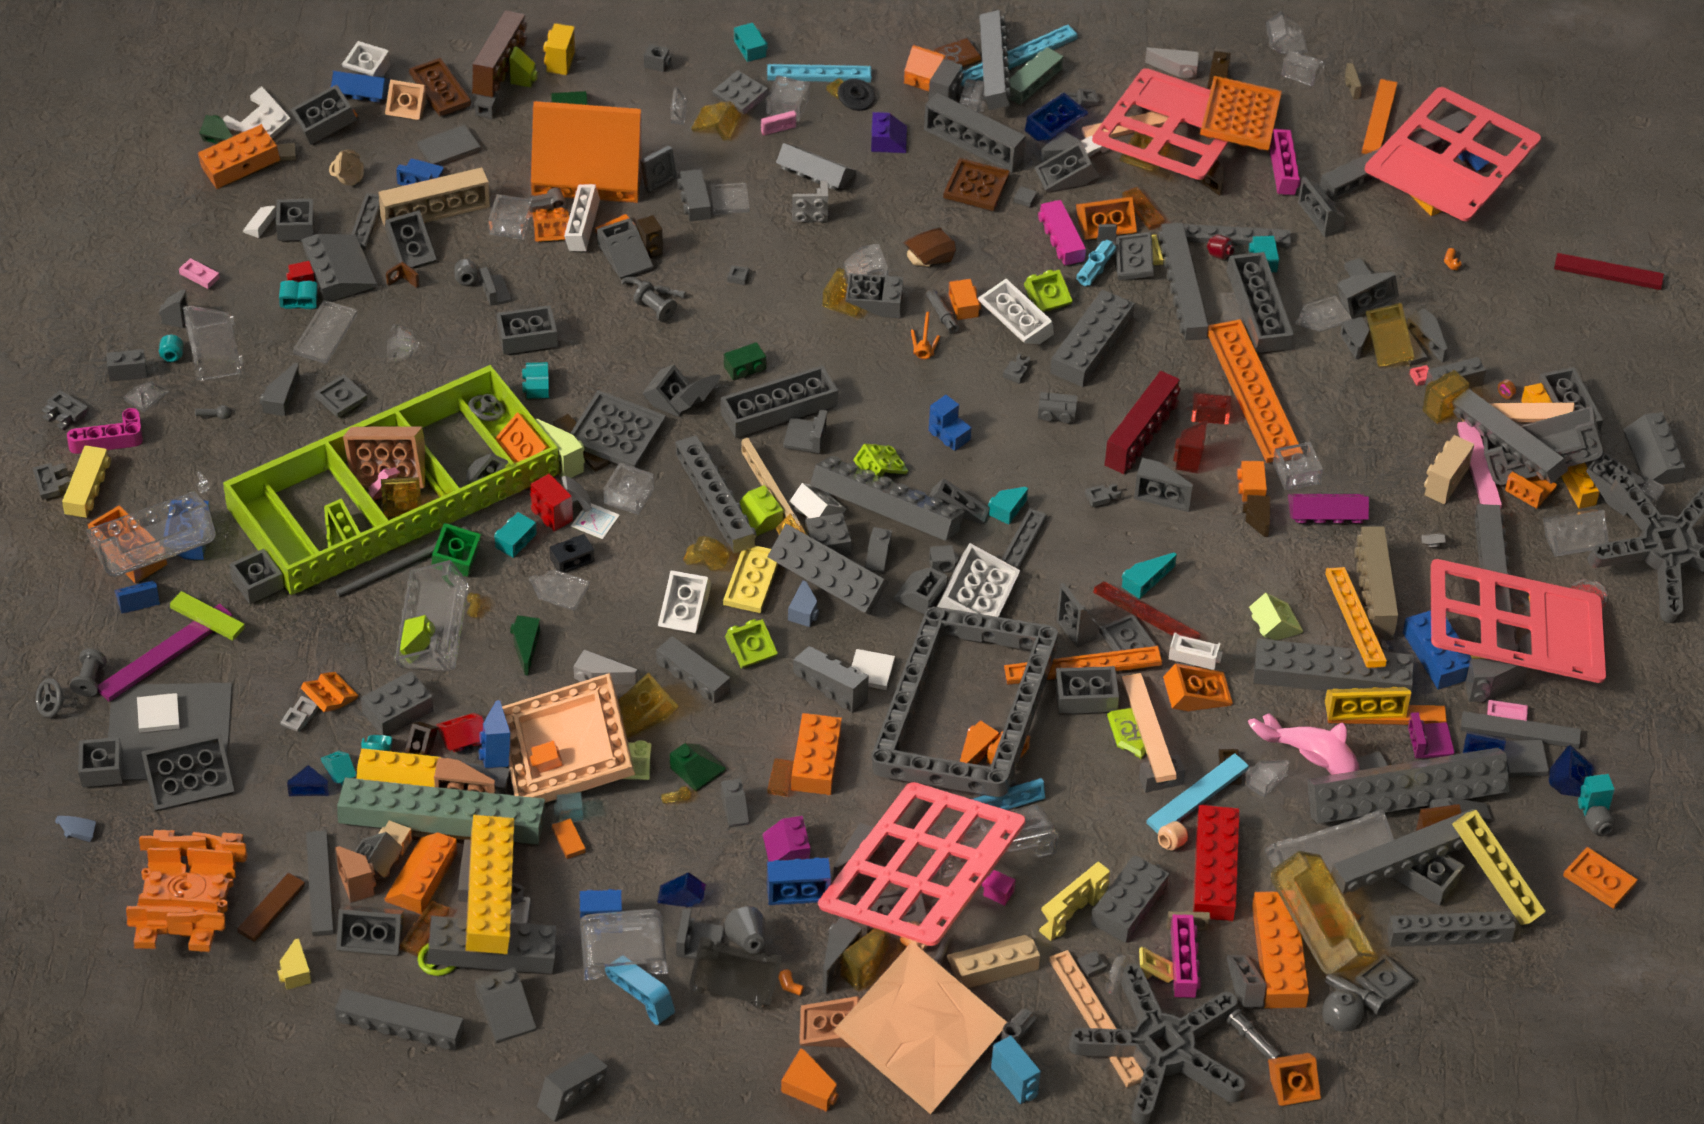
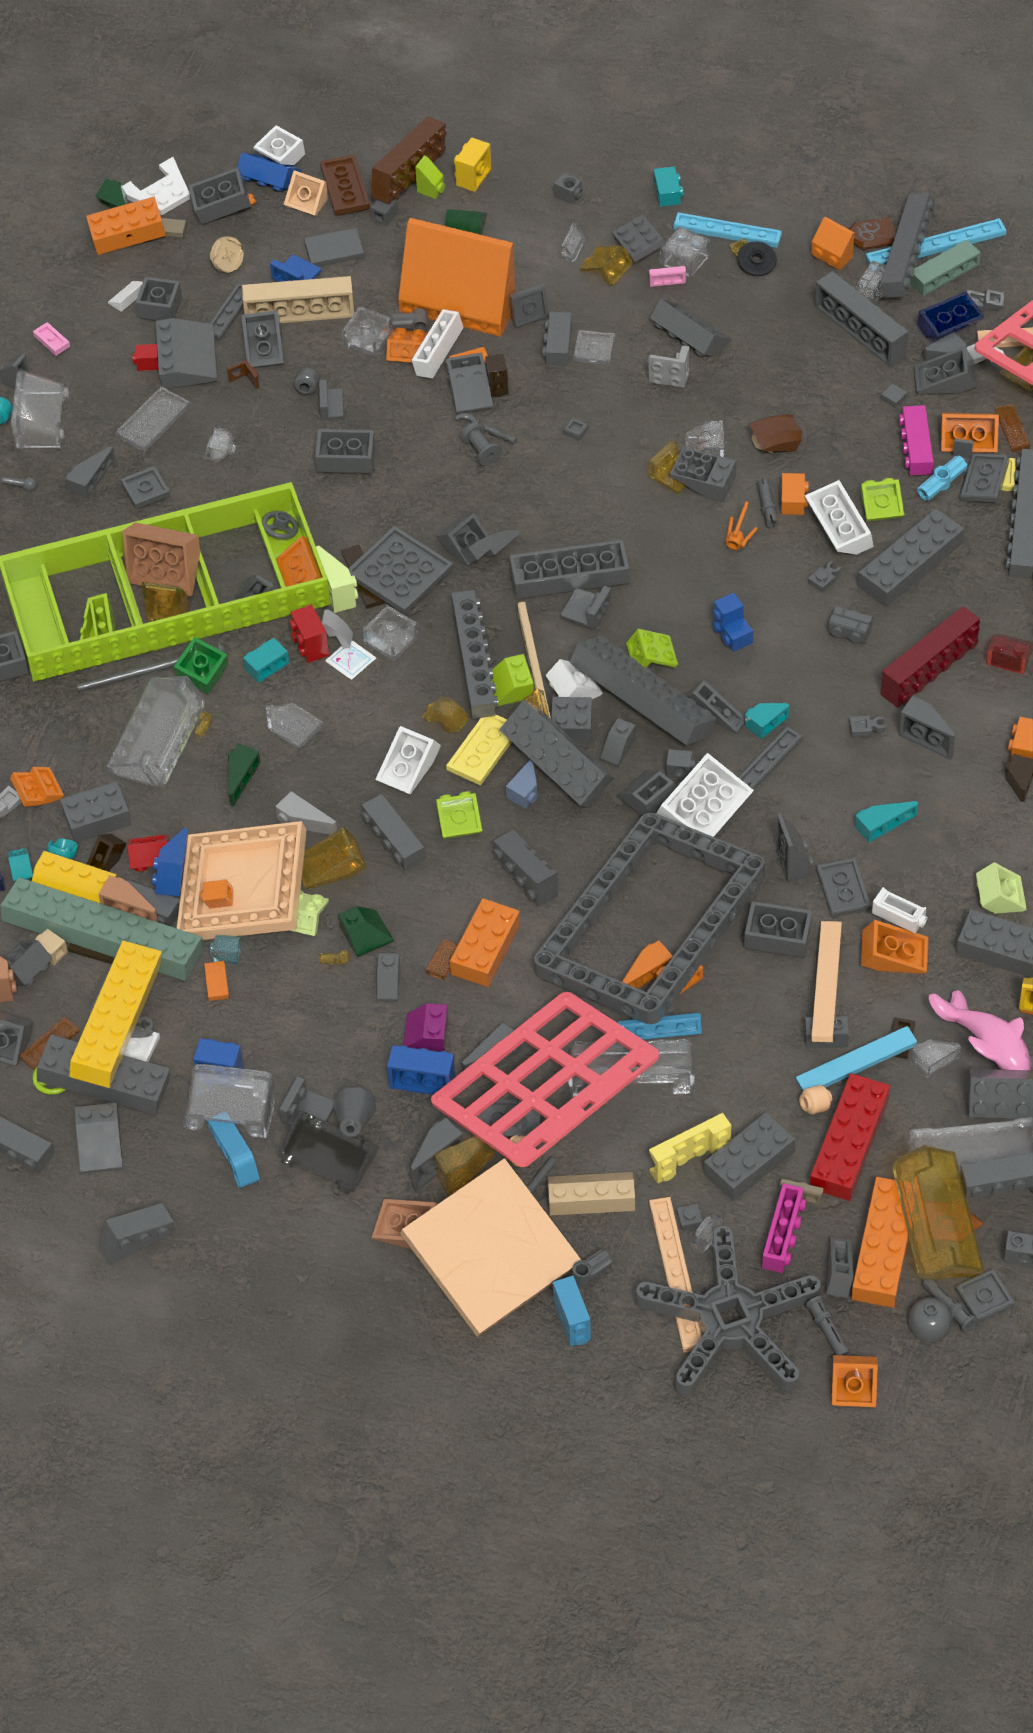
camera: 20 degrees right, 5 degrees up
(298, 294) = (138, 376): teal brick -> none
(375, 489) = (154, 577): bright pink plate -> none
(416, 634) = (134, 744): lime slope -> none
(423, 872) = (66, 987): orange slope -> none
(536, 380) = (338, 504): teal brick -> none
(572, 554) = (314, 690): black brick -> none
(682, 891) = (307, 1057): clear blue slope -> none
(744, 361) = (550, 520): dark green brick -> none
(787, 983) = (379, 1172): orange arm -> none
(809, 1082) = (365, 1279): orange slope -> none
(875, 665) = (572, 864): white tile -> none
(888, 133) = (774, 305): dark purple slope -> none
(947, 80) = (849, 260): dark grey brick -> none
(976, 184) = (847, 374): reddish brown plate -> none
(998, 887) = (621, 1117): dark pink brick -> none
(1120, 659) = (819, 903): orange tile -> none
(1126, 731) = (805, 979): lime tile -> none
(1144, 611) = (869, 859): clear red tile -> none
(1155, 965) = (749, 1231): light yellow slope -> none
(1190, 448) = (972, 693): clear red slope -> none

